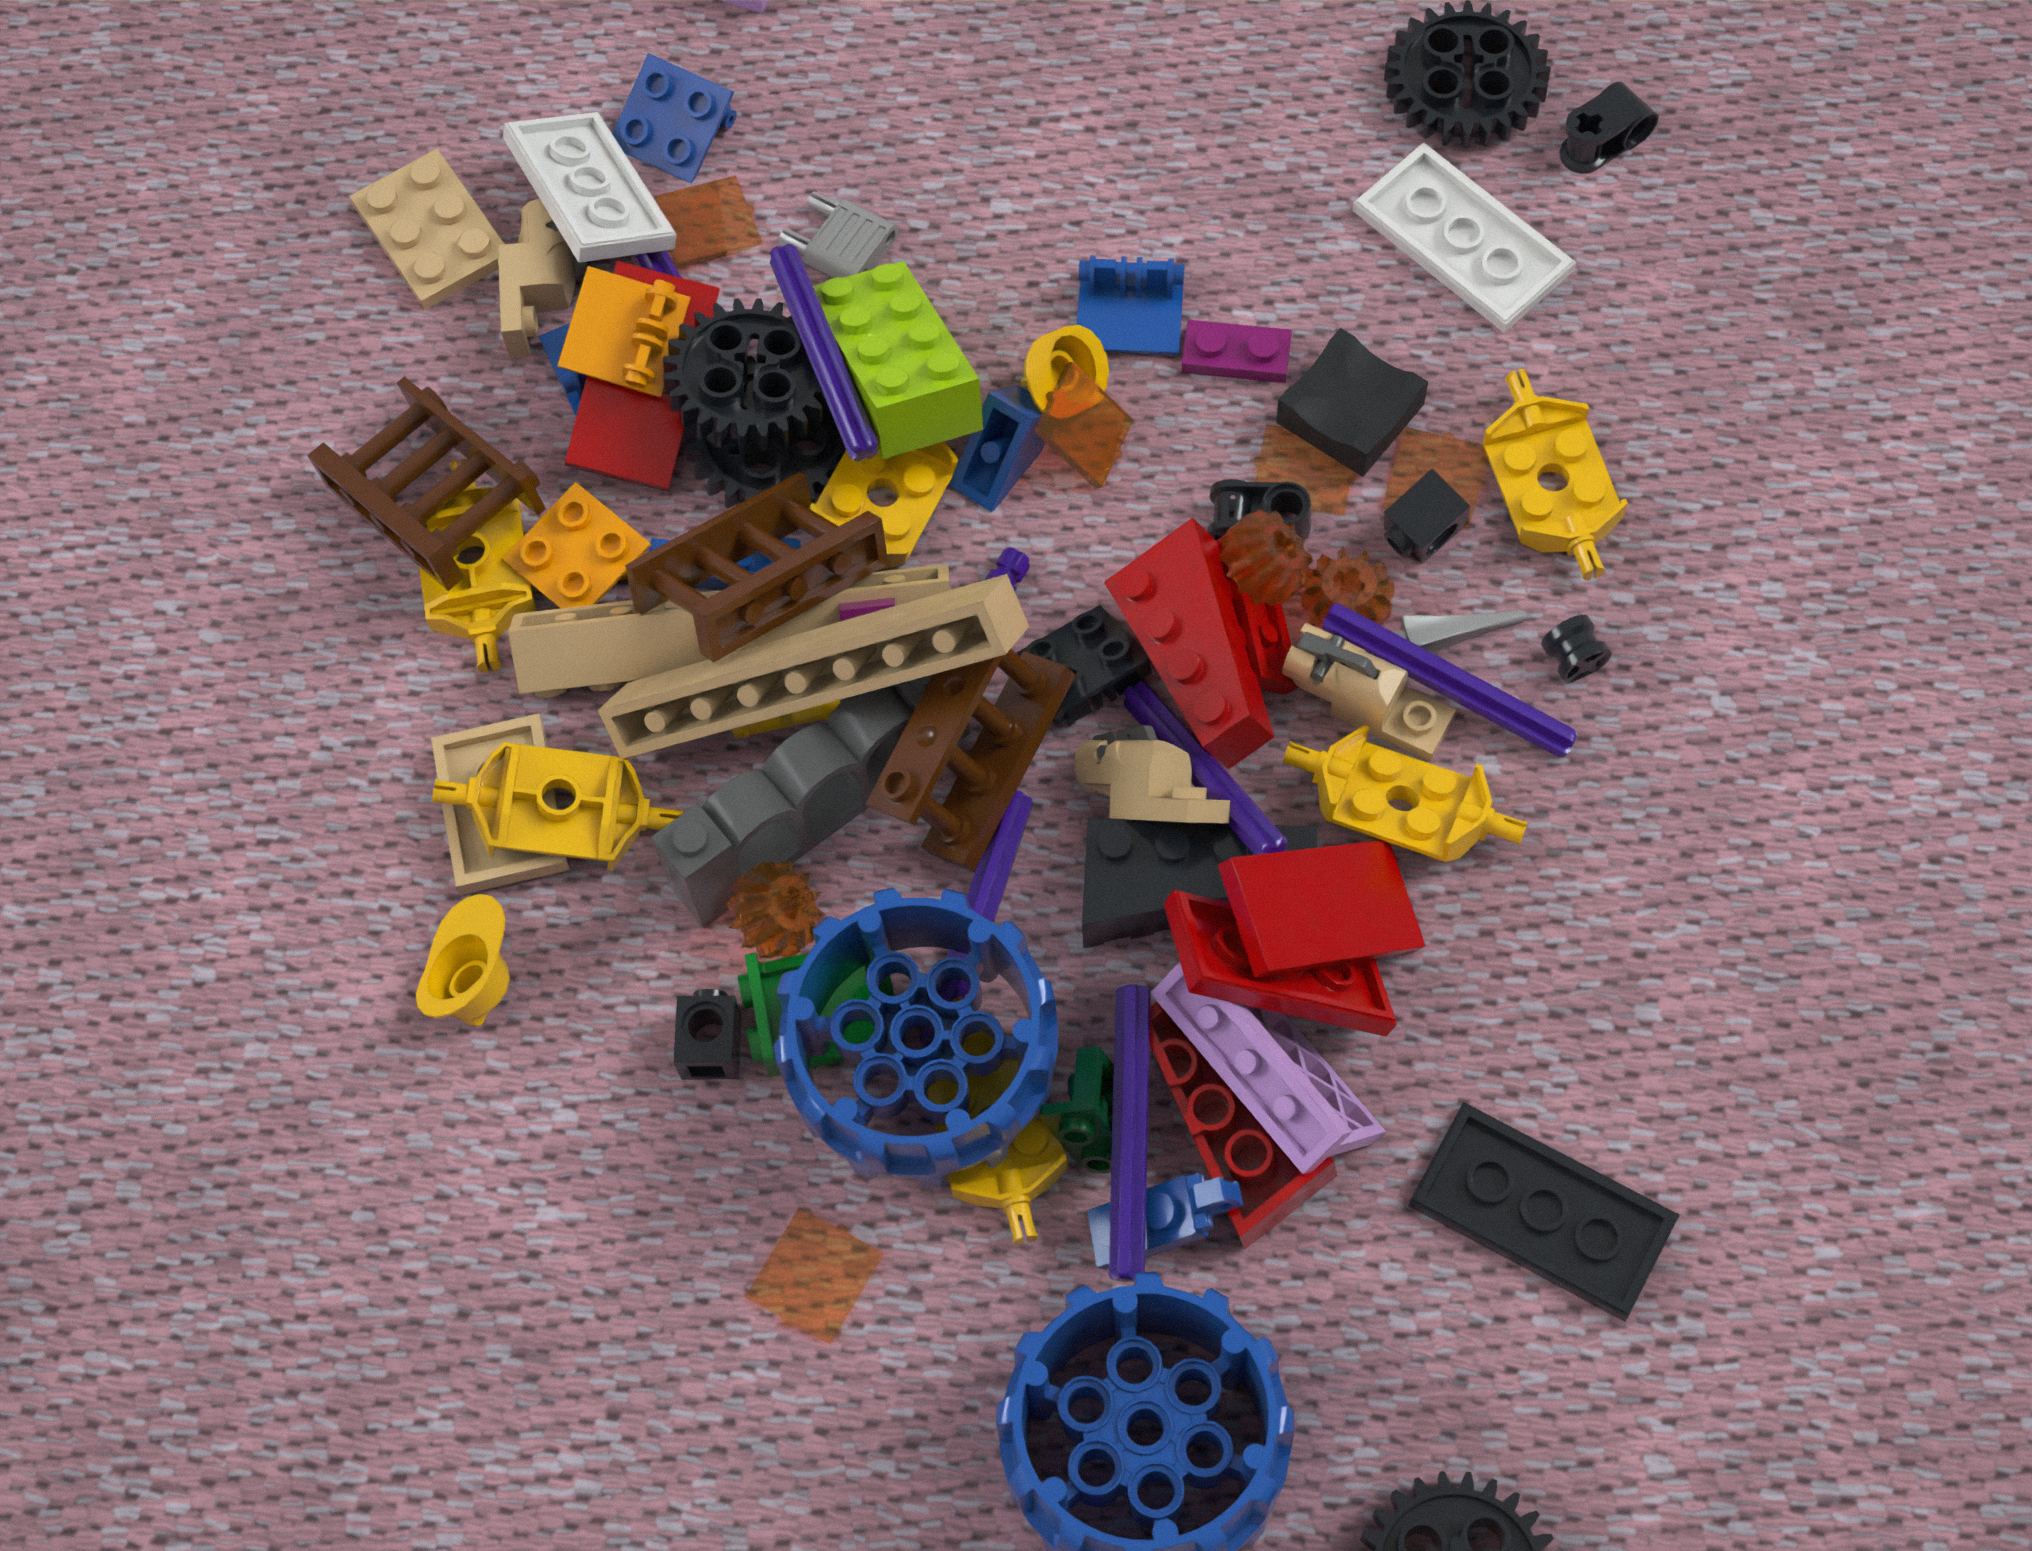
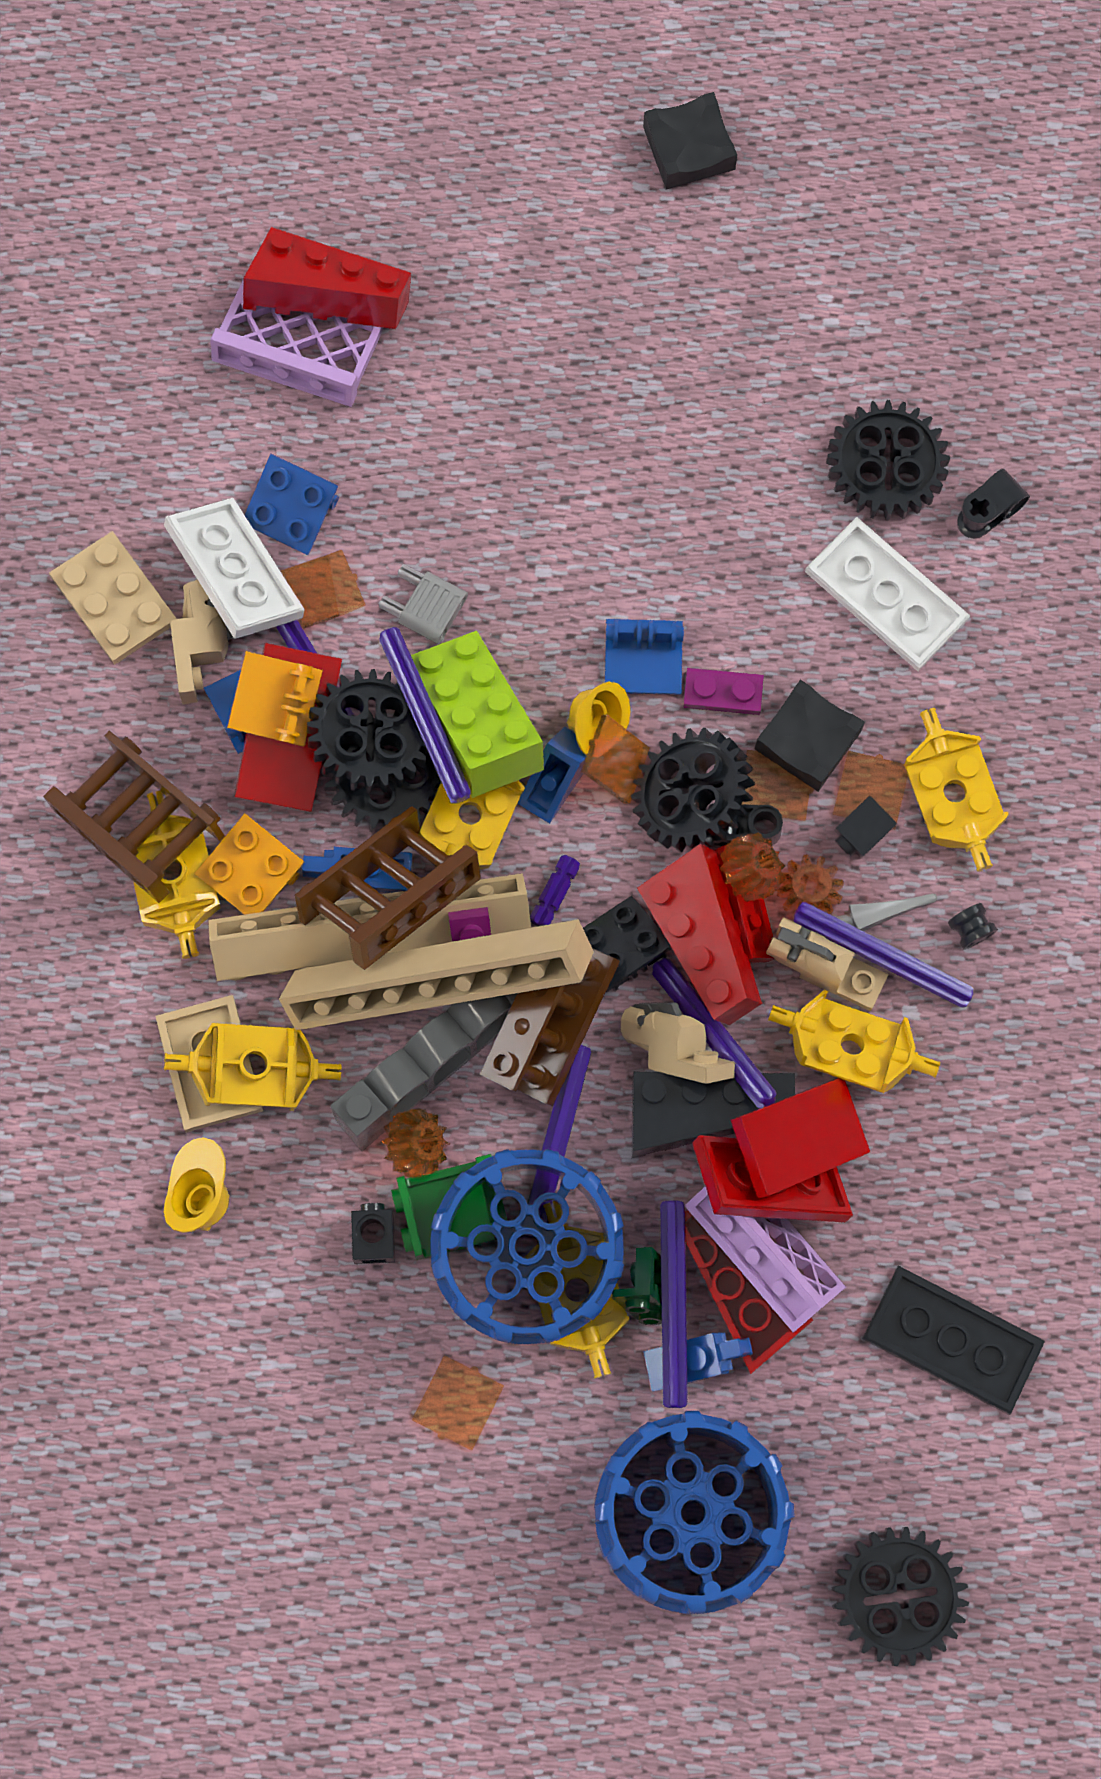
camera: 10 degrees left, 10 degrees up
(1188, 461) = (692, 789): none -> black gear

